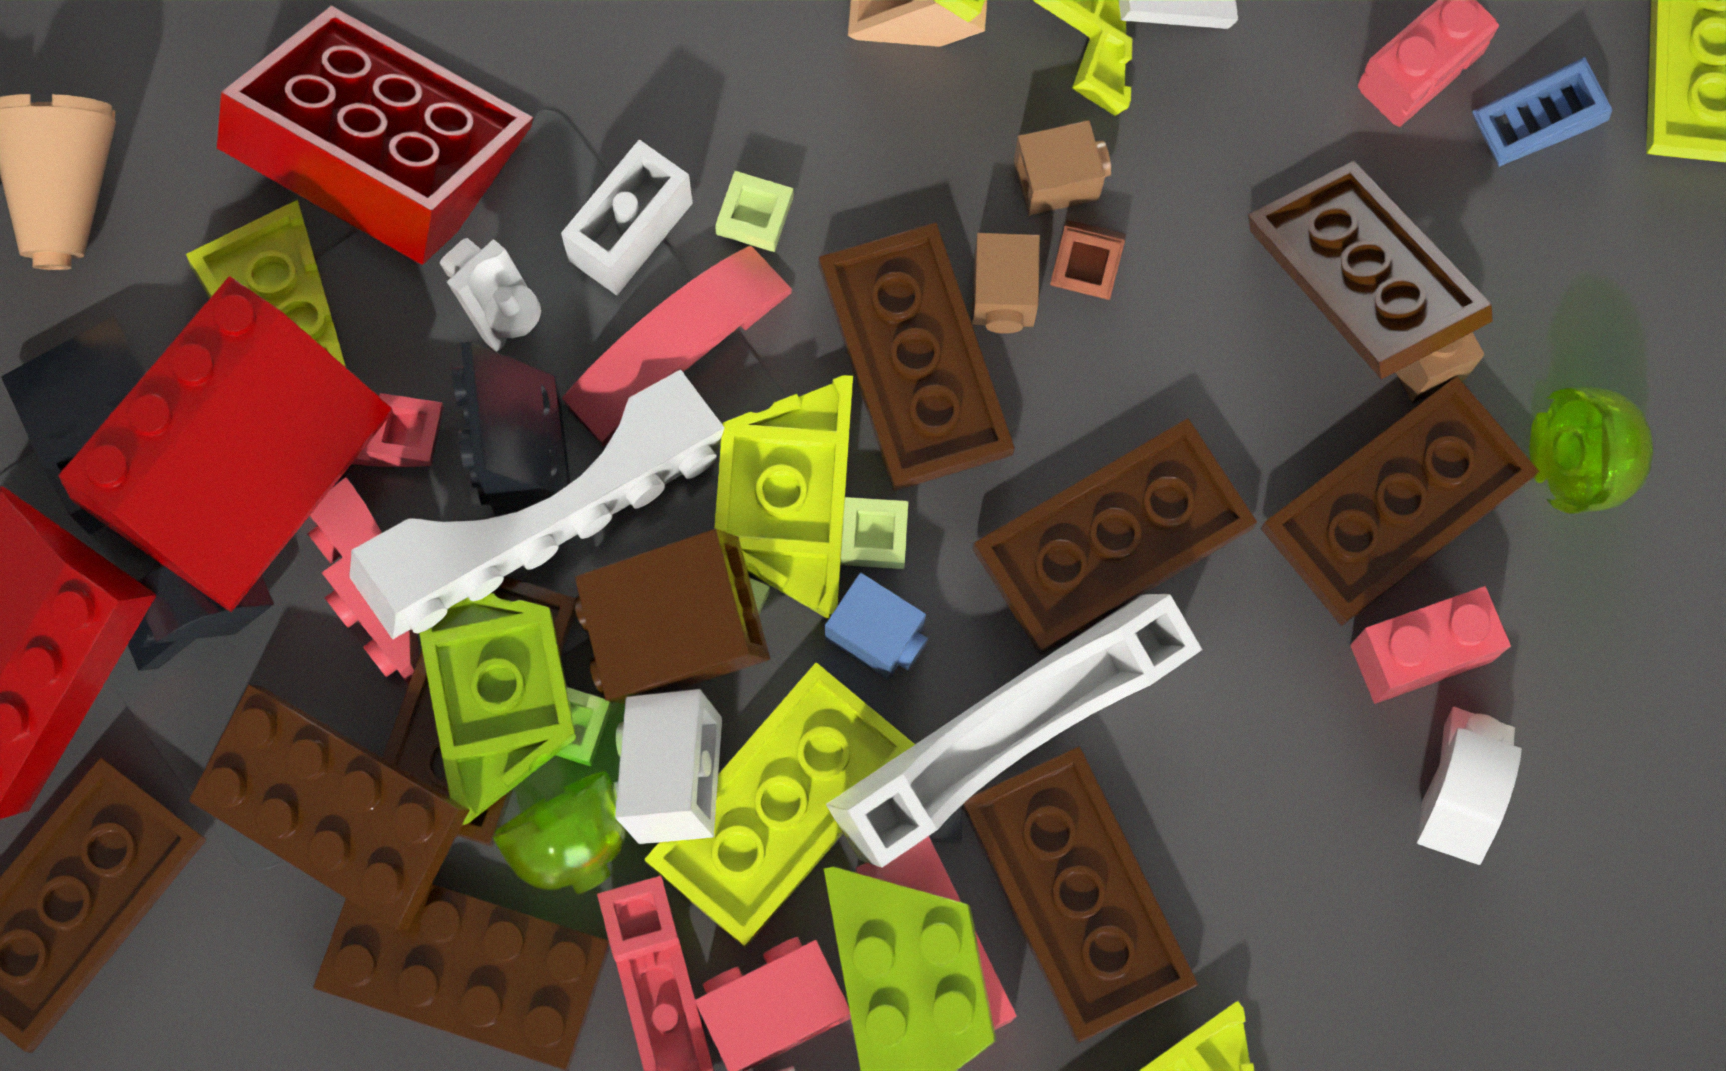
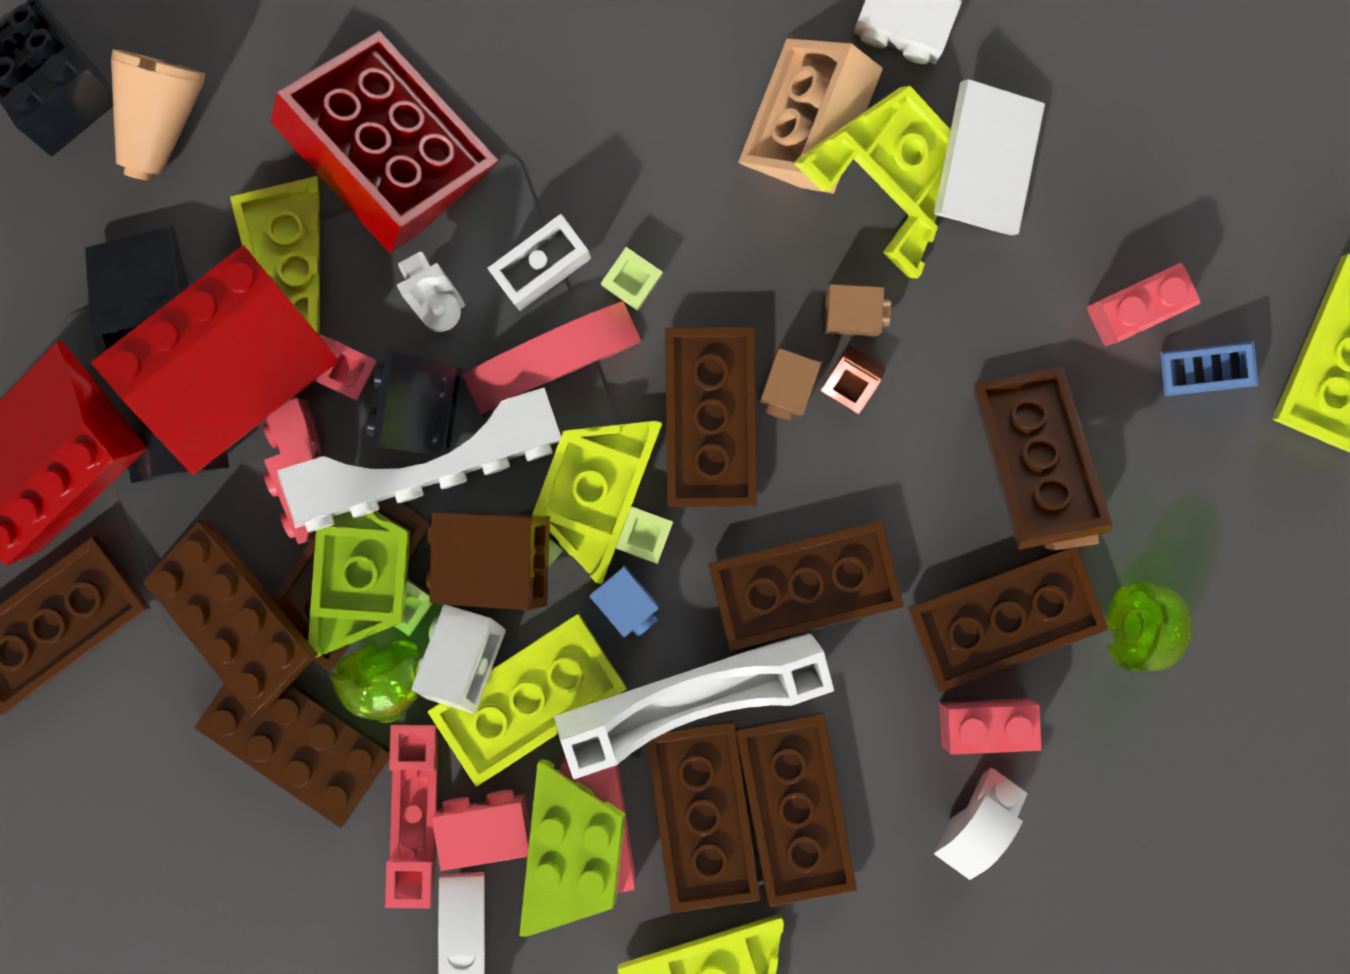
camera: 20 degrees right, 15 degrees up
(1206, 845) = (796, 809): none -> reddish brown plate

